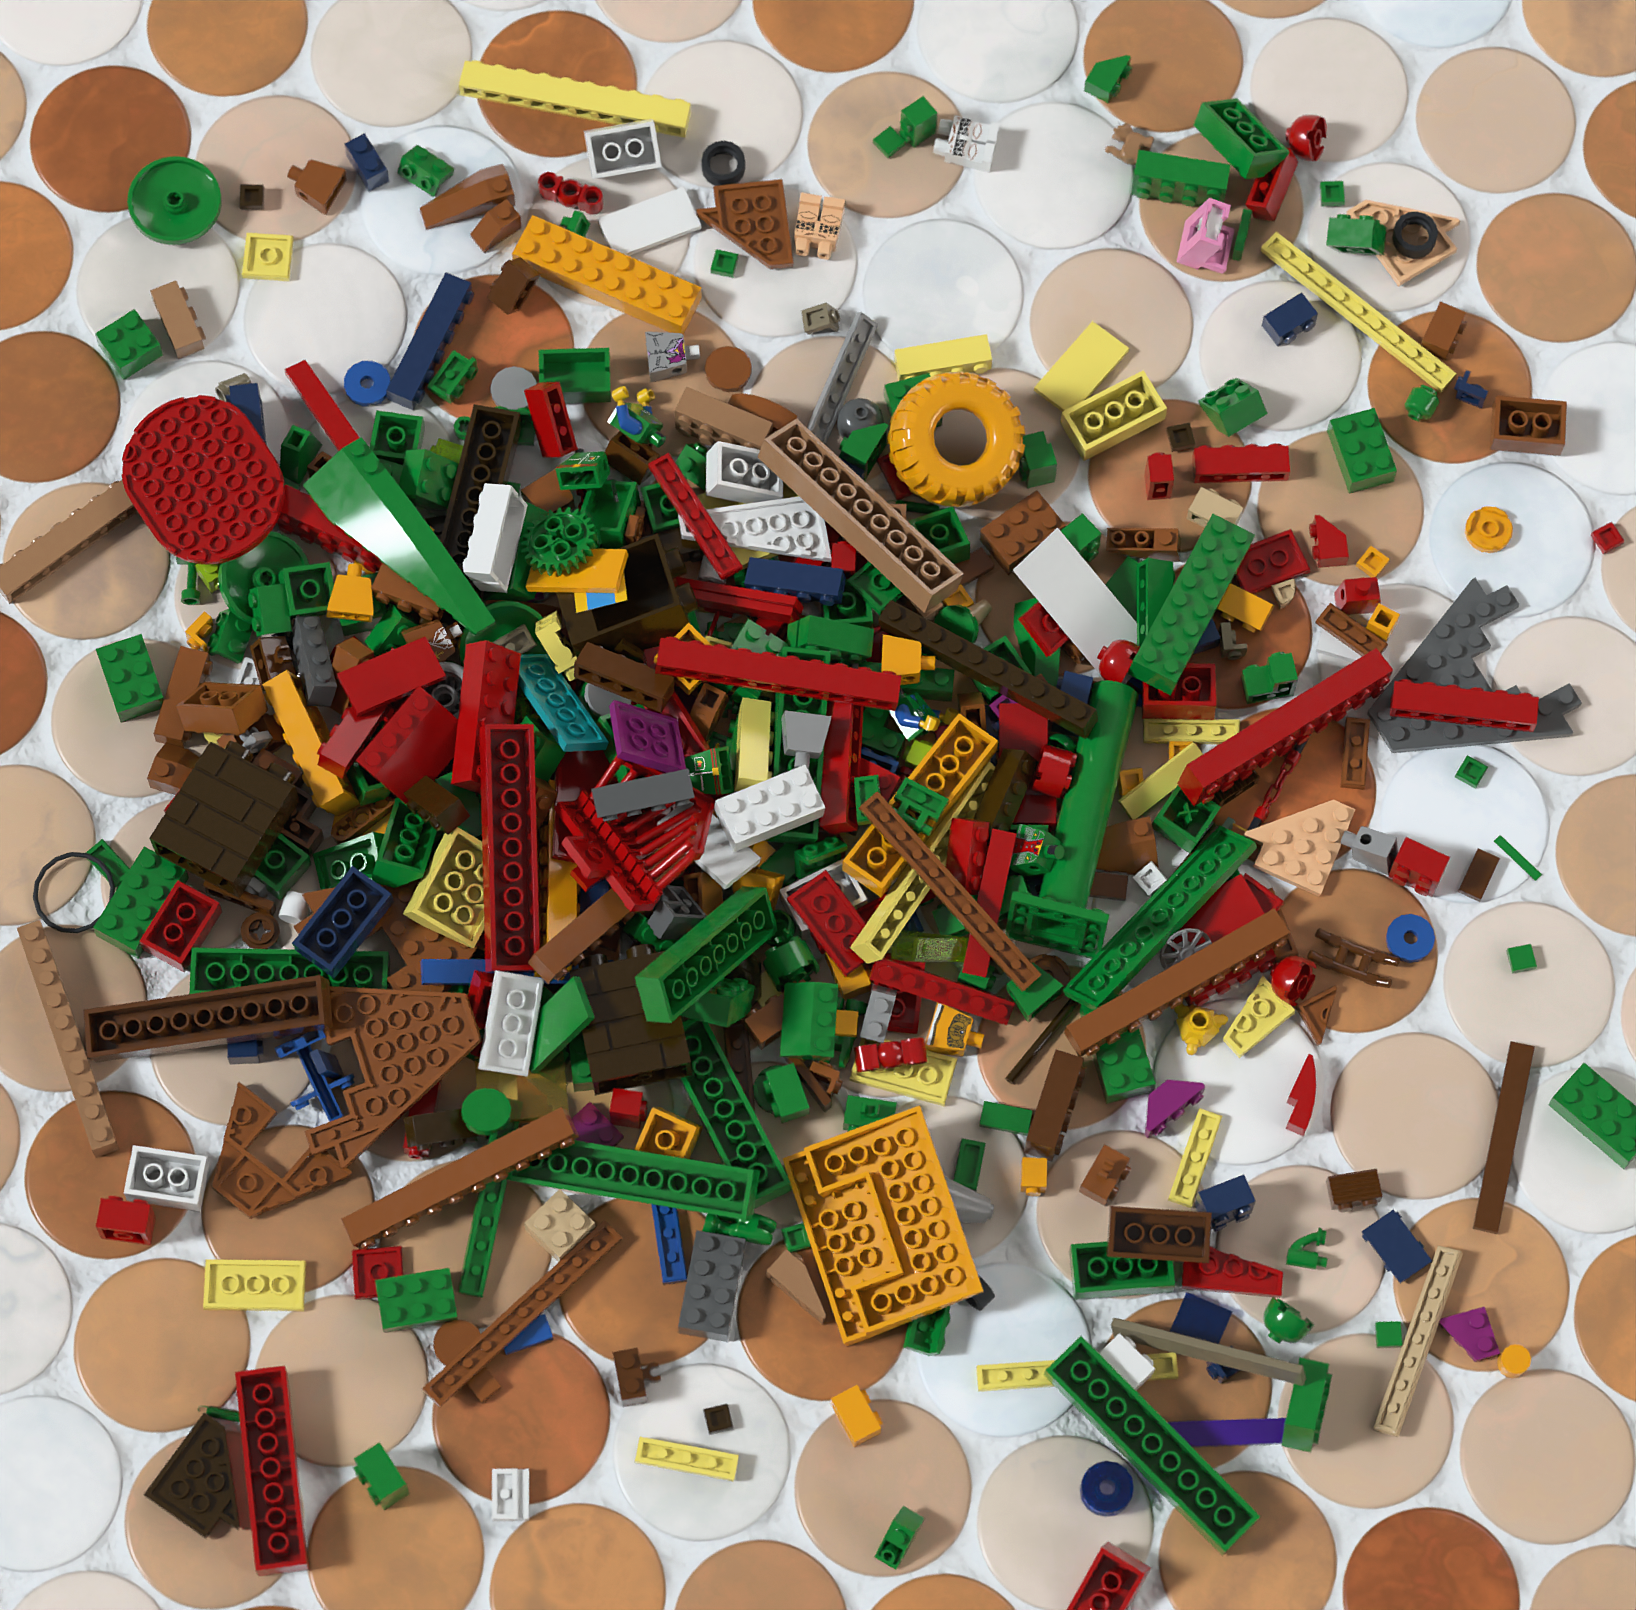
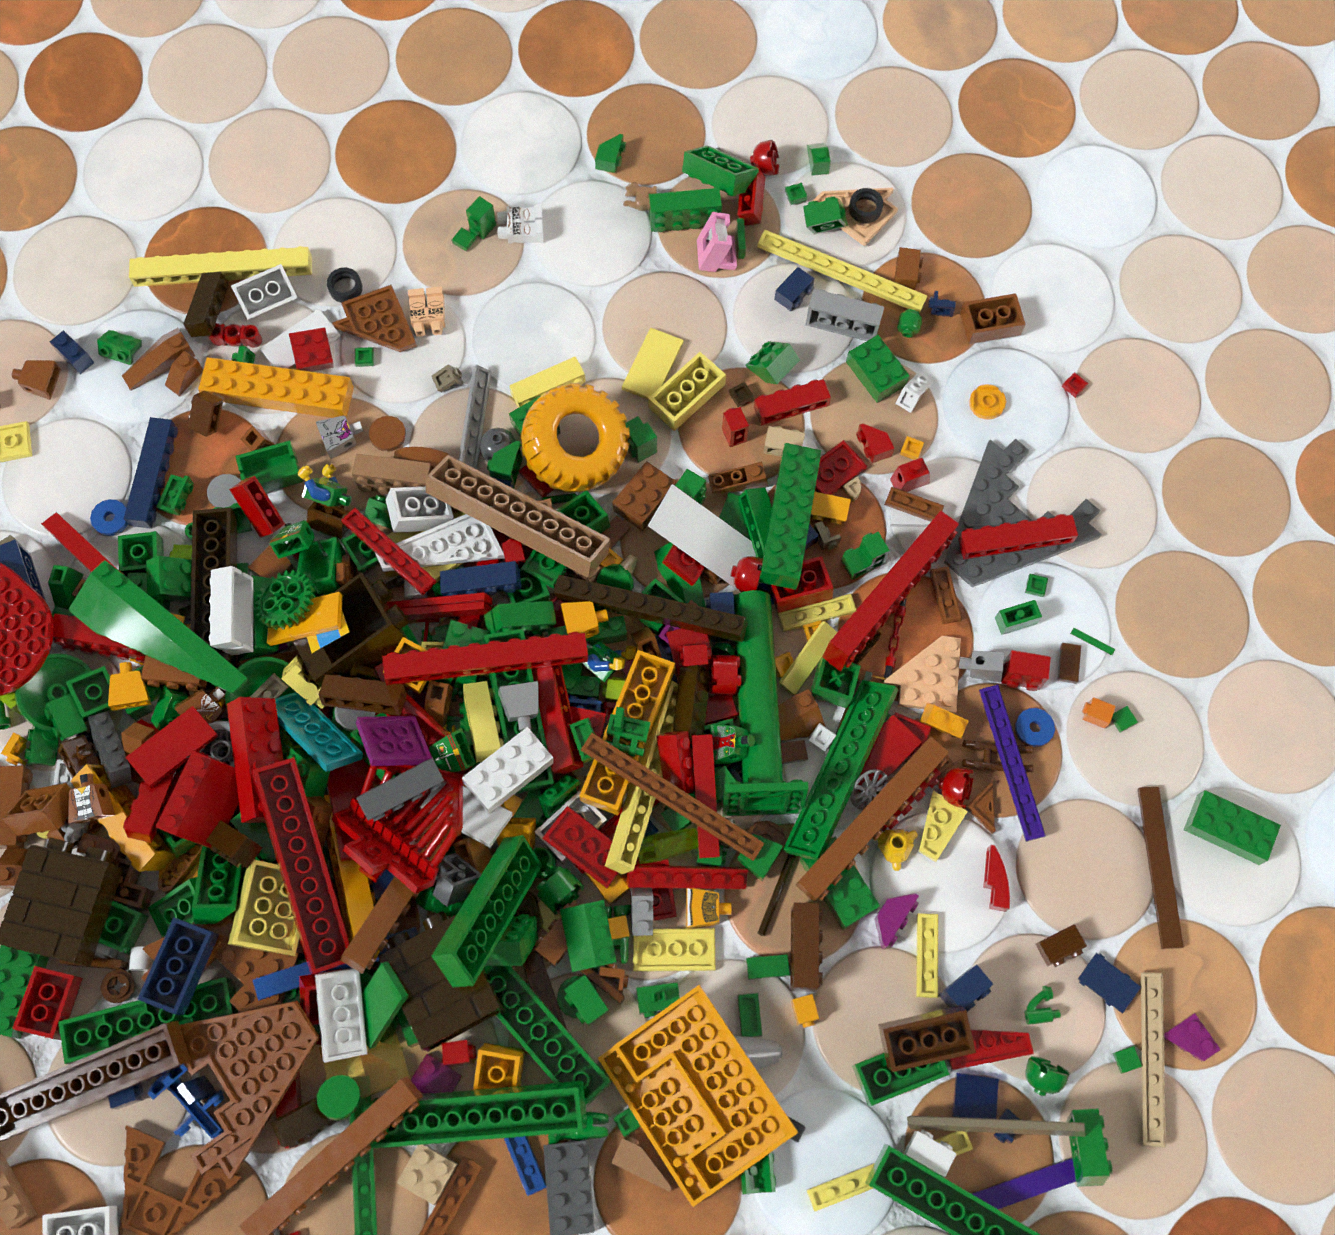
camera: 15 degrees left, 0 degrees up
(282, 713) = (89, 801): none -> dark orange torso
(547, 145) = (206, 304): none -> dark brown brick
(567, 334) = (256, 439): none -> dark orange brick
(662, 239) = (311, 350): none -> red brick
(890, 1054) = (661, 943): red piece -> none
(913, 785) = (619, 719): none -> green tile
(1023, 737) = (693, 654): none -> red brick
(1105, 1175) = (862, 993): dark orange brick -> none
(1300, 898) = (944, 721): none -> light orange brick
(1340, 371) = (844, 315): none -> light grey brick
(1366, 969) = (1012, 763): none -> dark purple tile
(1376, 153) = (819, 158): none -> green slope
(1383, 622) = (935, 490): light orange brick -> none
(1397, 490) = (912, 392): none -> white bracket
(1432, 802) = (1018, 617): none -> green brick
(1491, 941) = (1098, 712): none -> orange brick
(1513, 1361) = (1235, 1053): light orange piece -> none

